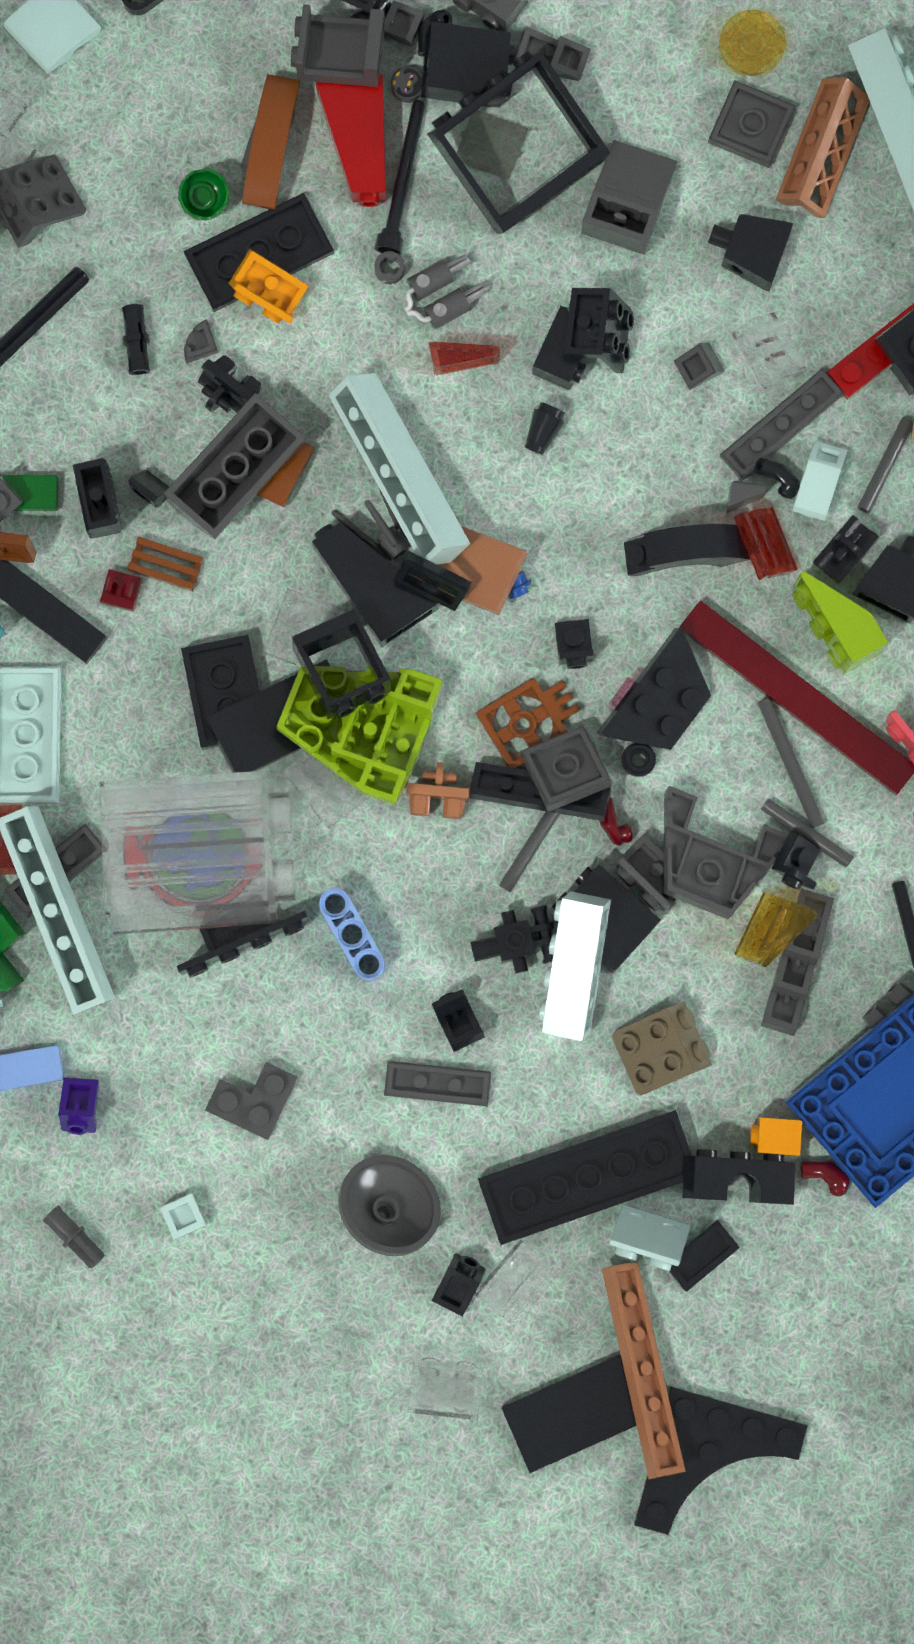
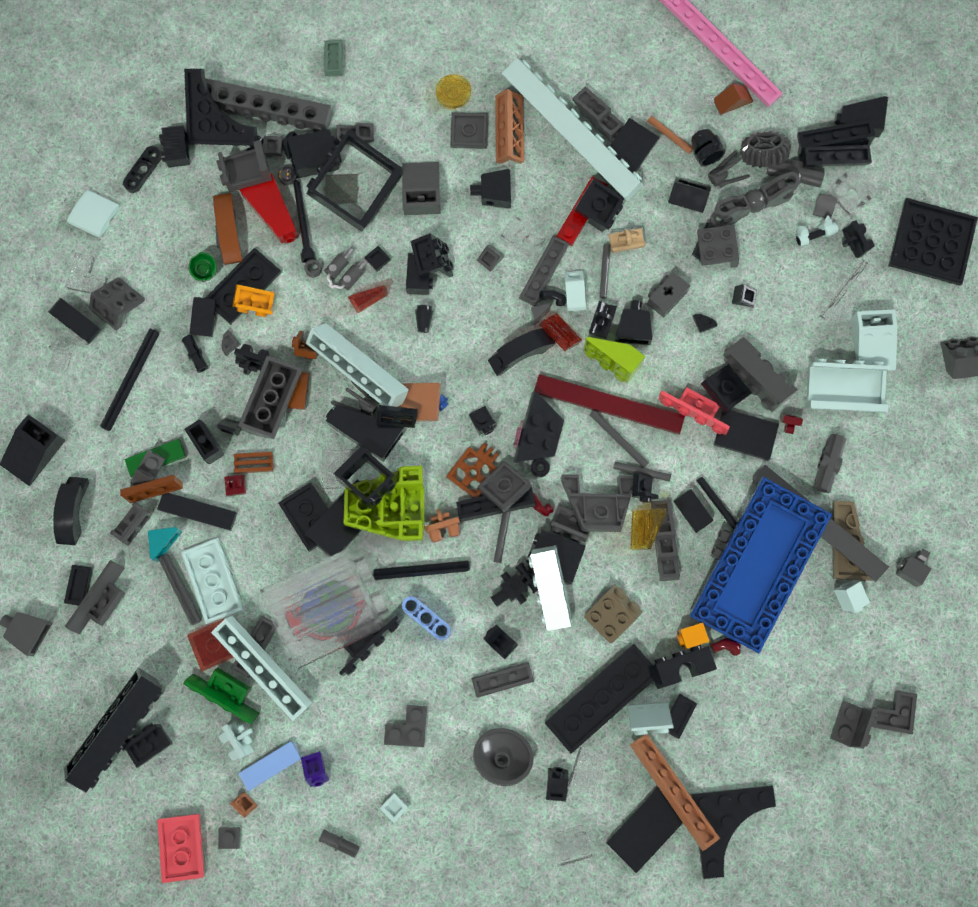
camera: 20 degrees left, 5 degrees down
(172, 281) = (202, 317): none -> black slope
(318, 402) = (301, 348): none -> dark orange bracket
(374, 852) = (421, 570): none -> black axle
(505, 292) = (377, 258): none -> black tile
(865, 932) = (693, 511): none -> black slope

